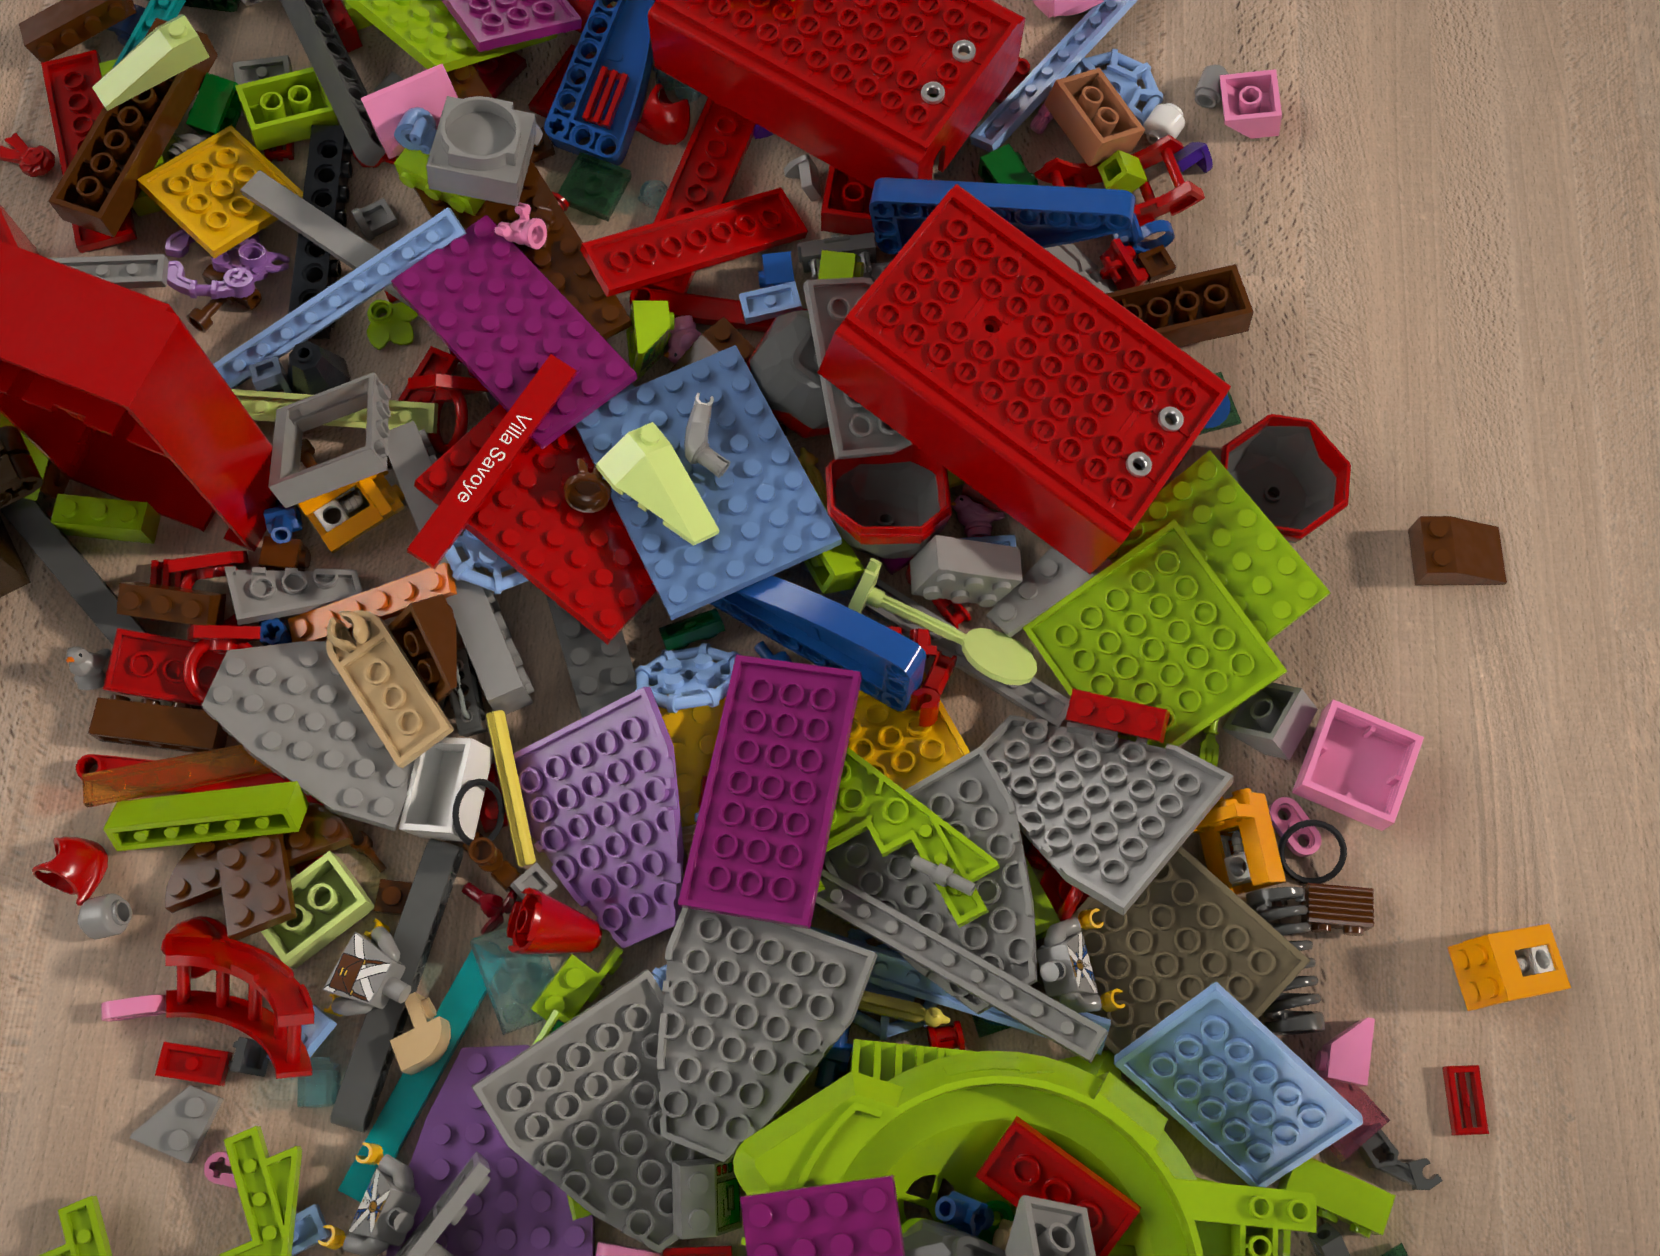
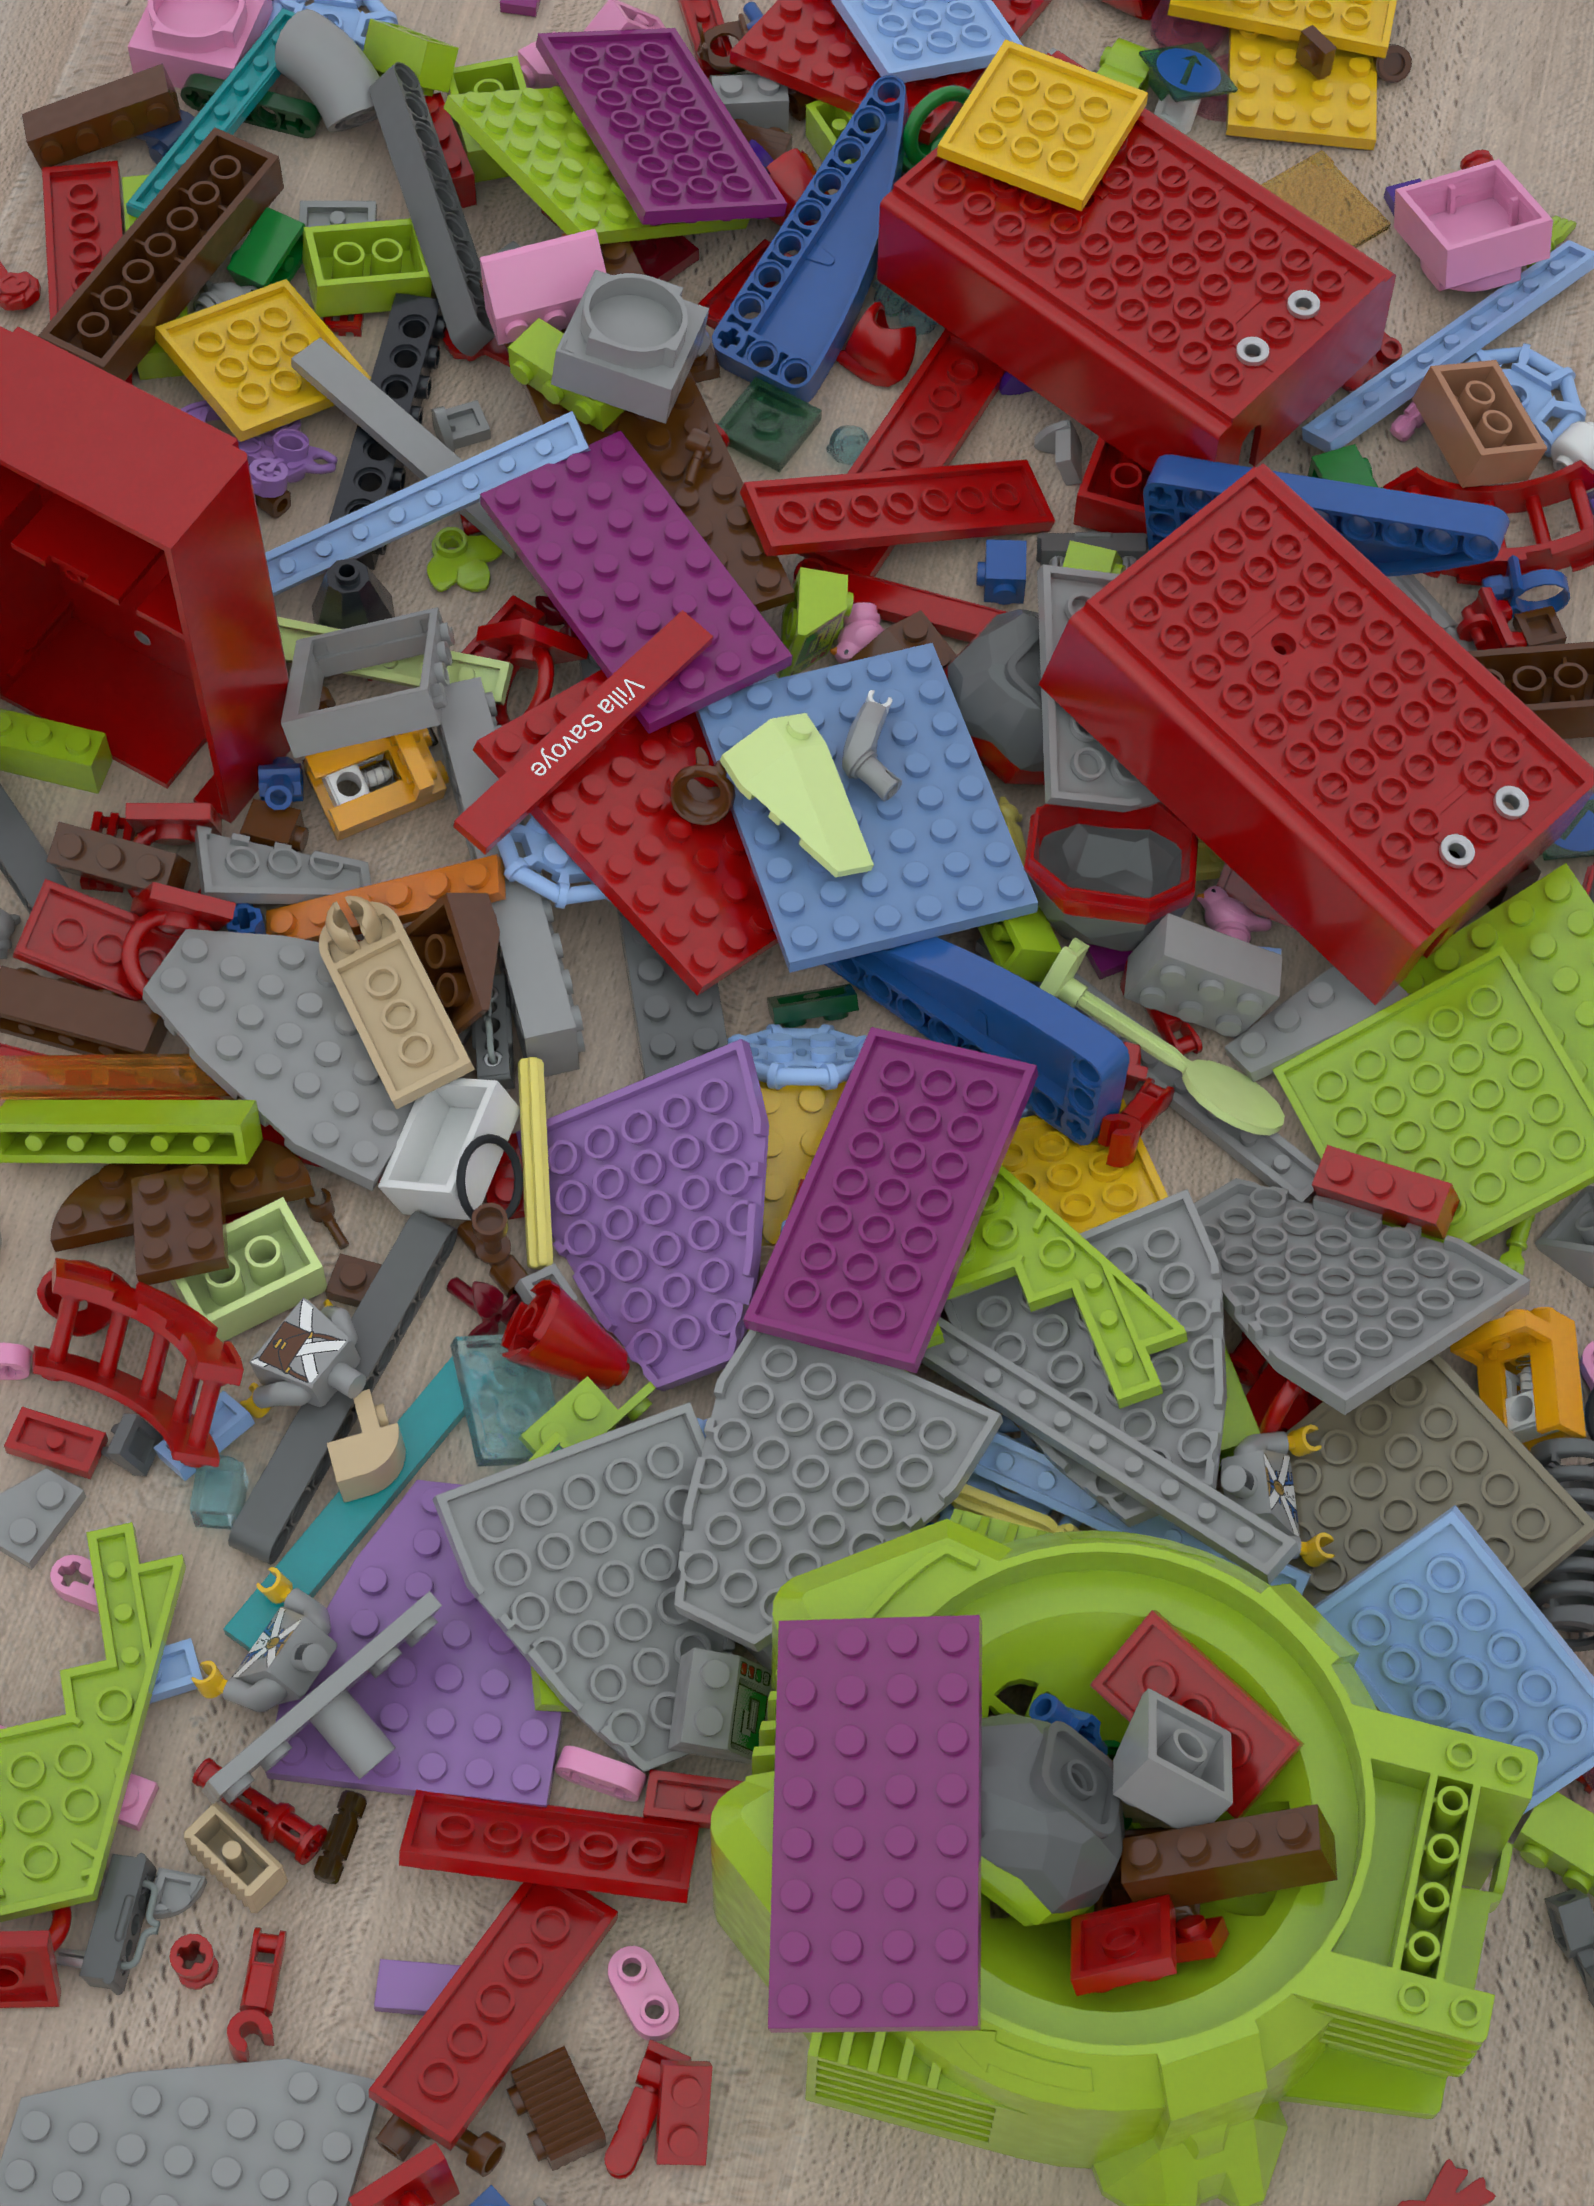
camera: 10 degrees right, 10 degrees down
(155, 59) = (207, 178): yellowish green wedge -> none
(270, 376) = (293, 599): sand blue panel -> none
(416, 130) = (546, 308): medium blue piece -> none
(524, 231) = (669, 456): bright pink piece -> none
(596, 92) = (818, 282): red tile -> none
(770, 302) = (981, 601): light blue plate -> none
(942, 875) = (1107, 1333): light grey bar -> none
(1122, 172) = (1513, 497): lime brick -> none

